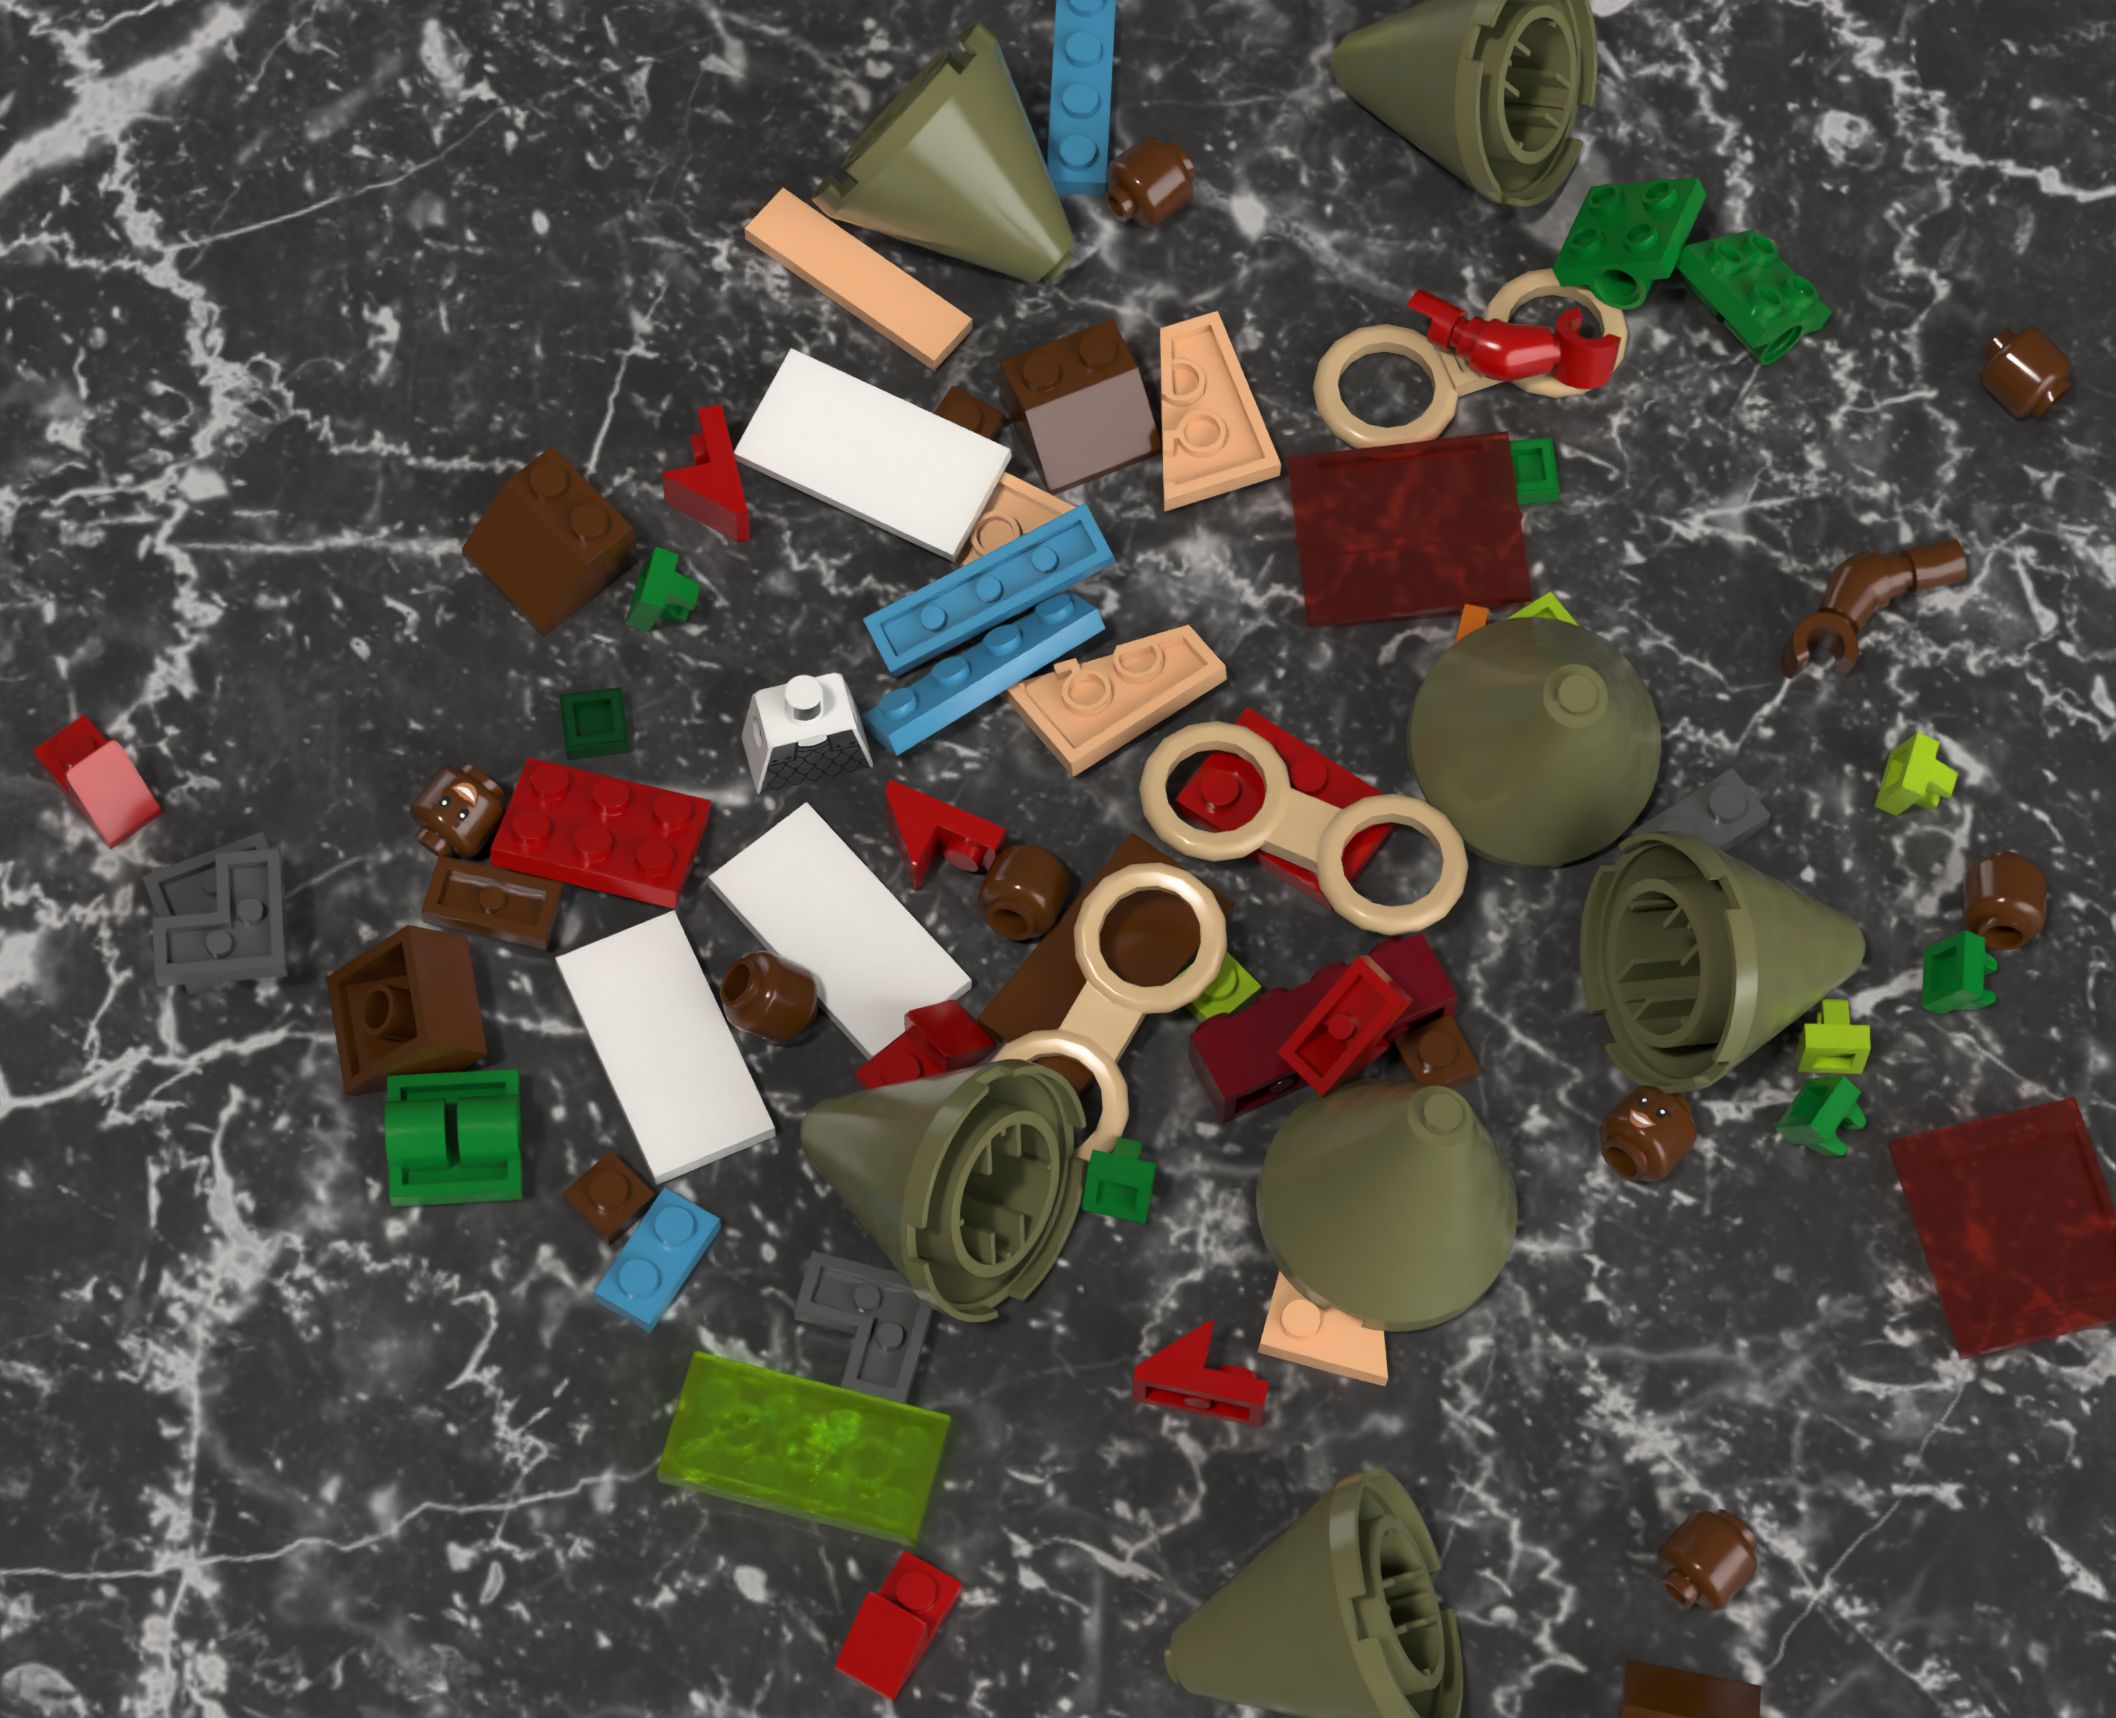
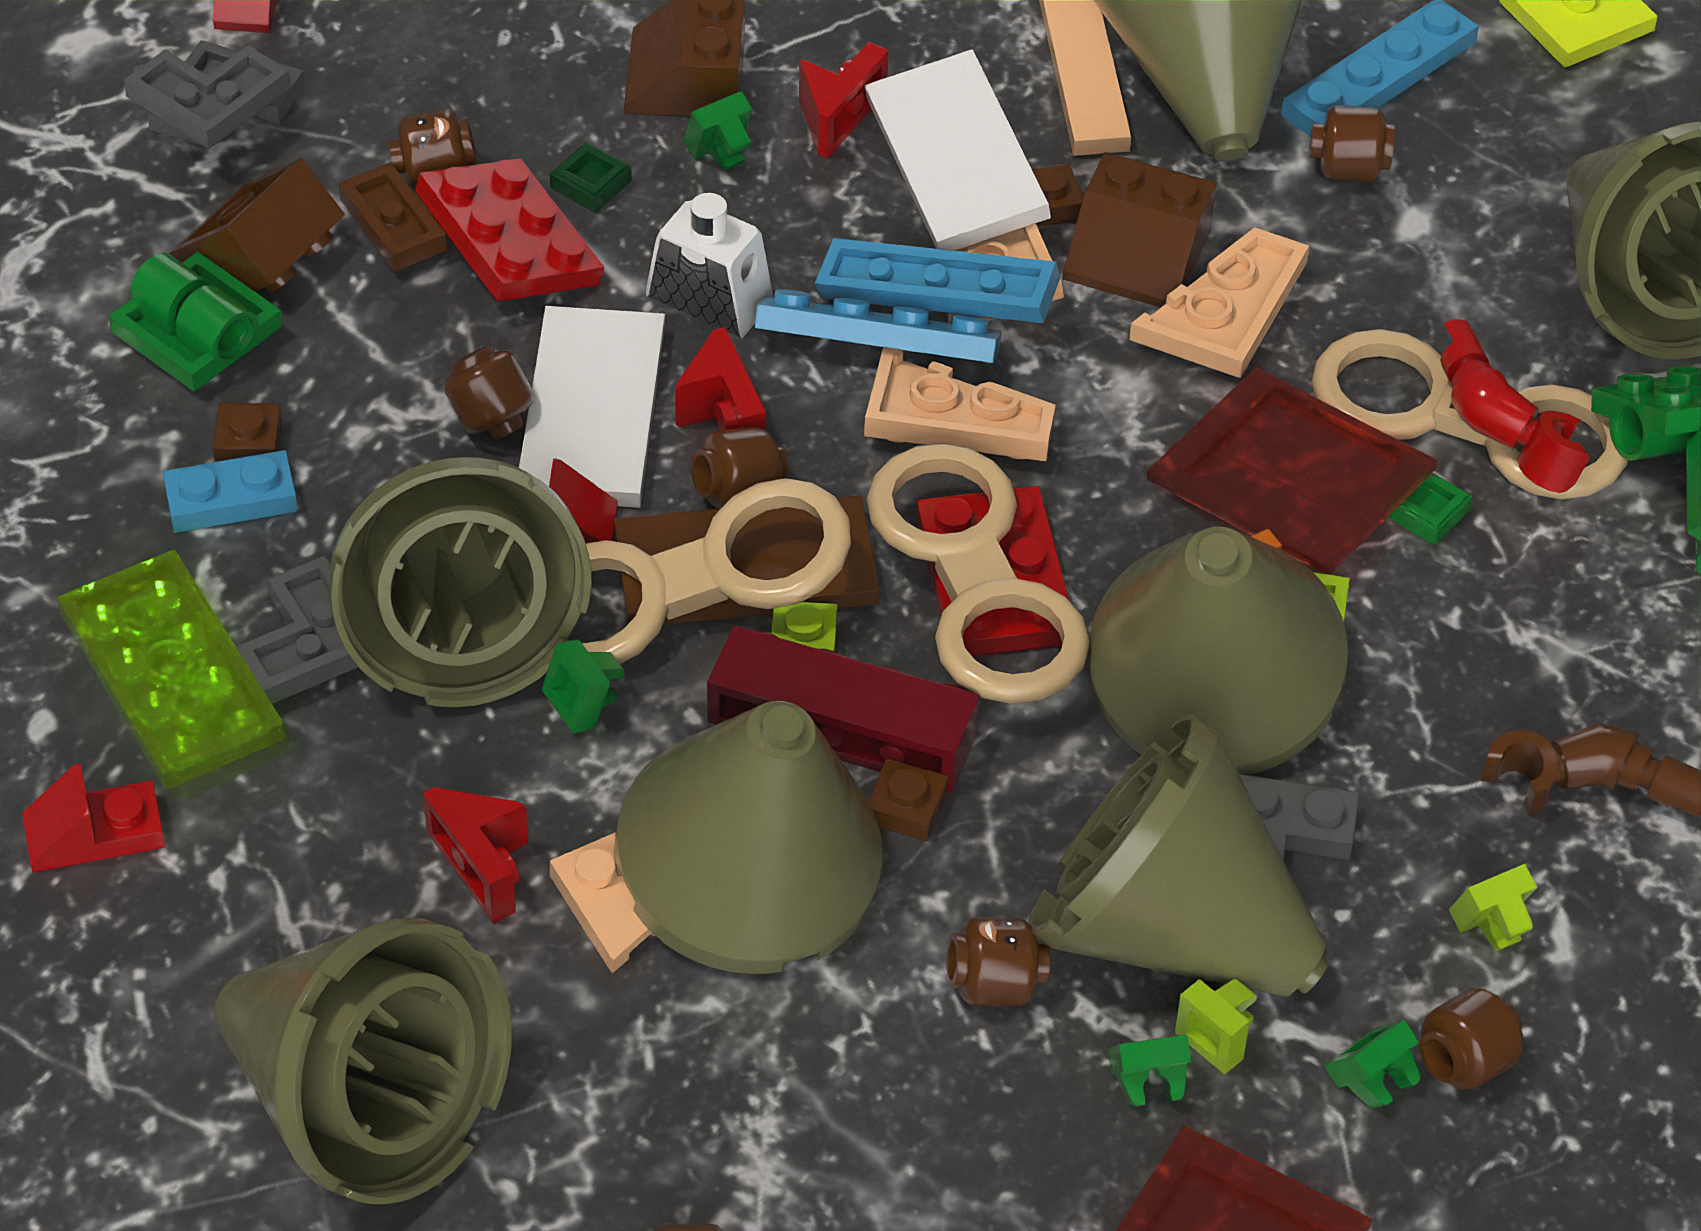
camera: 45 degrees right, 15 degrees down
(665, 1047) = (390, 380): white tile -> none
(1346, 1027) = (840, 684): red slope -> none

